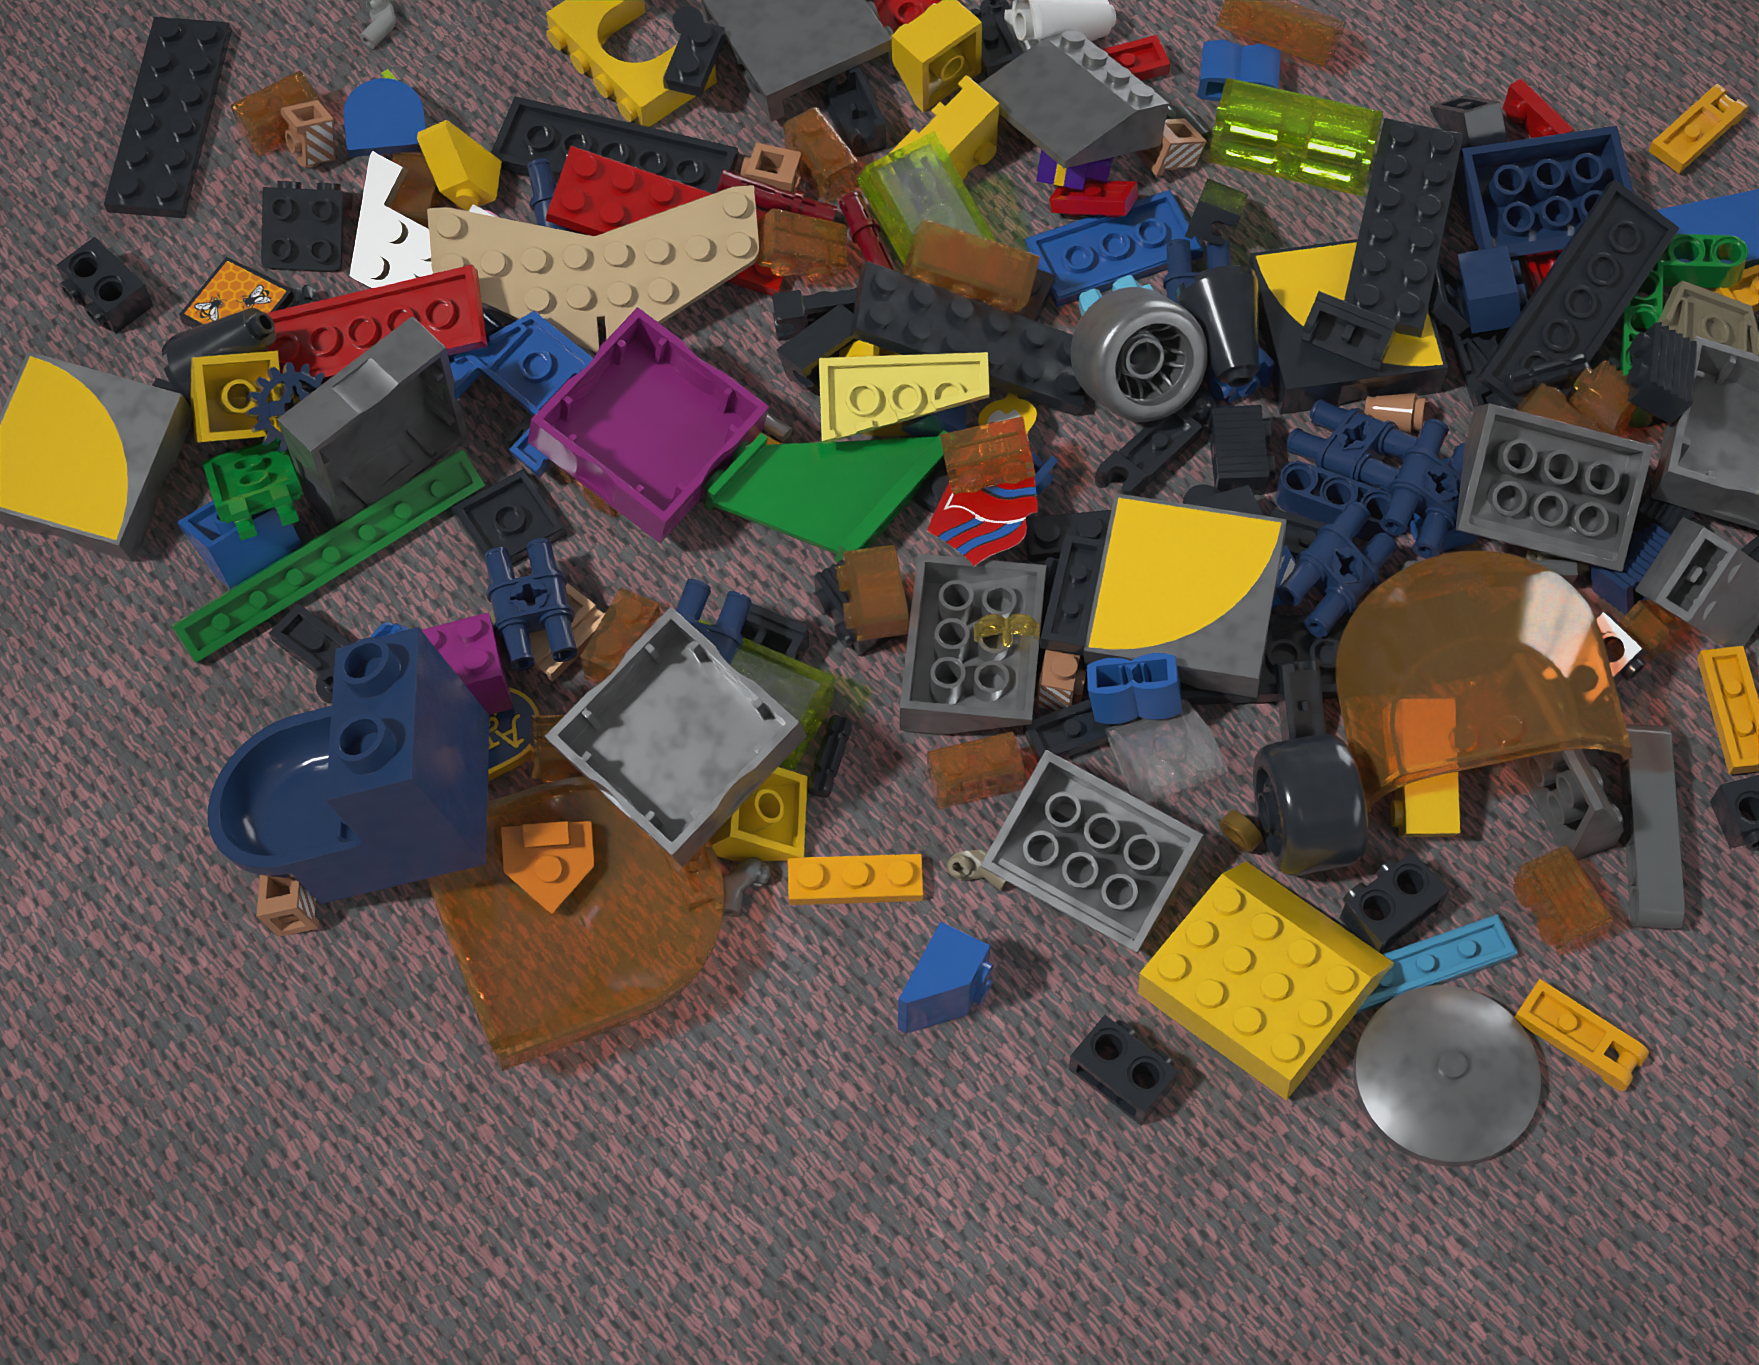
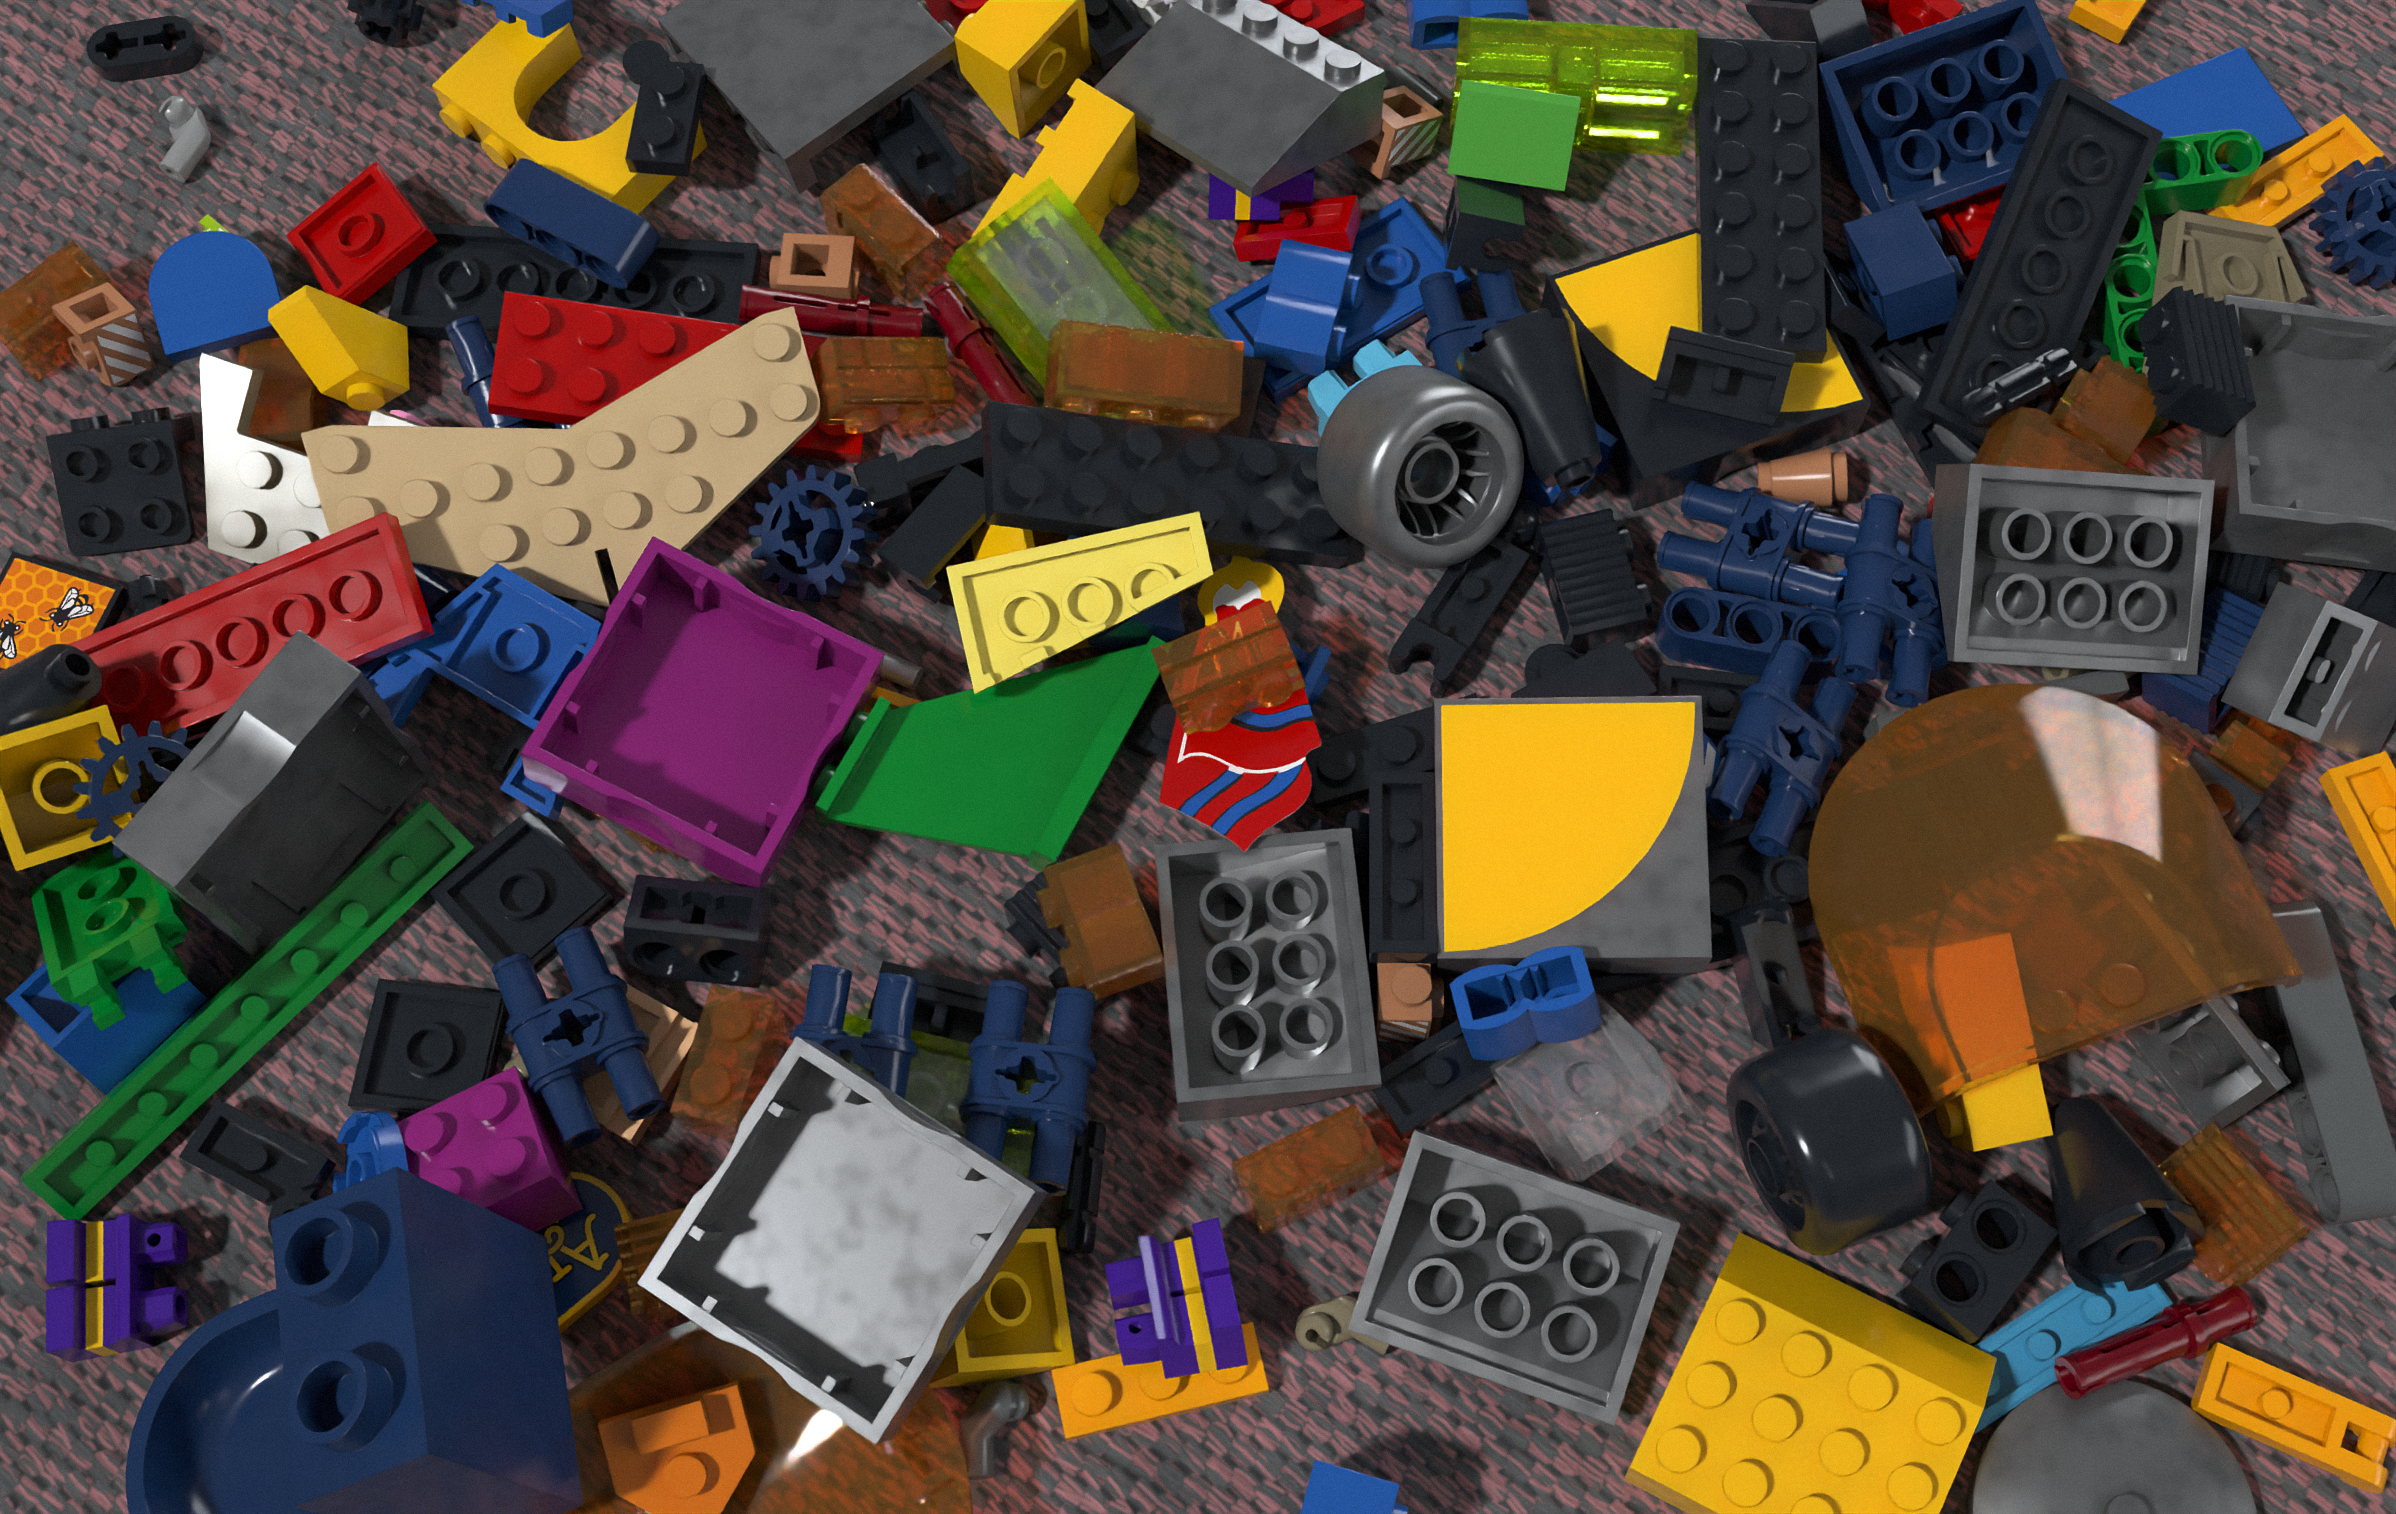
camera: 10 degrees left, 5 degrees up
(209, 700) = (107, 1286): none -> dark purple hips
(433, 594) = (425, 1046): none -> black tile
(483, 99) = (361, 236): none -> red tile
(617, 556) = (697, 931): none -> black brick
(620, 113) = (572, 223): none -> dark blue beam
(738, 332) = (819, 538): none -> dark blue gear
(811, 676) = (1003, 1065): none -> dark blue pin
(876, 830) = (1191, 1301): none -> dark purple hips
(1016, 624) = (1324, 935): clear yellow piece -> none
(1087, 246) = (1304, 308): none -> blue brick
(1240, 831) = (1723, 1189): pearl gold tile -> none
(1249, 160) = (1513, 135): none -> bright green slope
(1489, 882) = (2113, 1202): none -> black cone
(1513, 970) = (2177, 1333): none -> dark red pin

